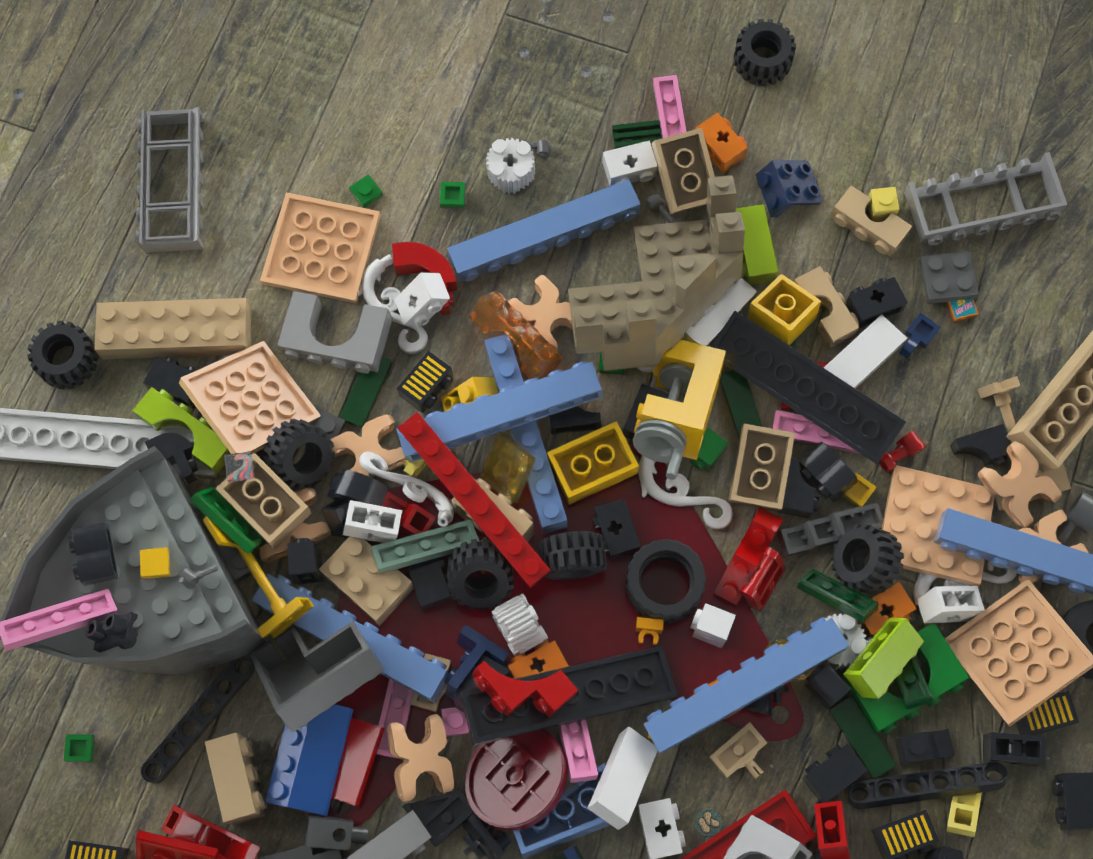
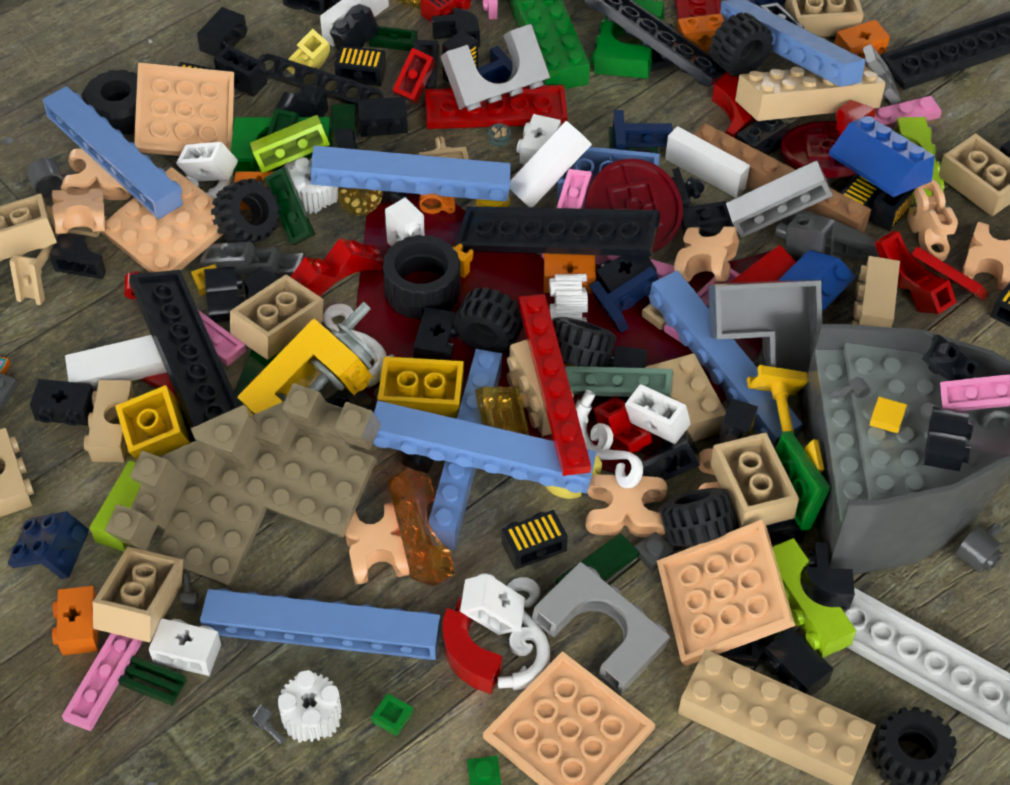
camera: 155 degrees left, 20 degrees down
(239, 466) = (766, 502): clear tile -> none
(357, 487) = (661, 452): black brick -> none
(469, 391) = (497, 502): yellow slope -> none
(509, 693) = (604, 226): red arch -> none
(764, 579) = (323, 246): red plate -> none
(920, 333) = (48, 361): dark blue plate -> none

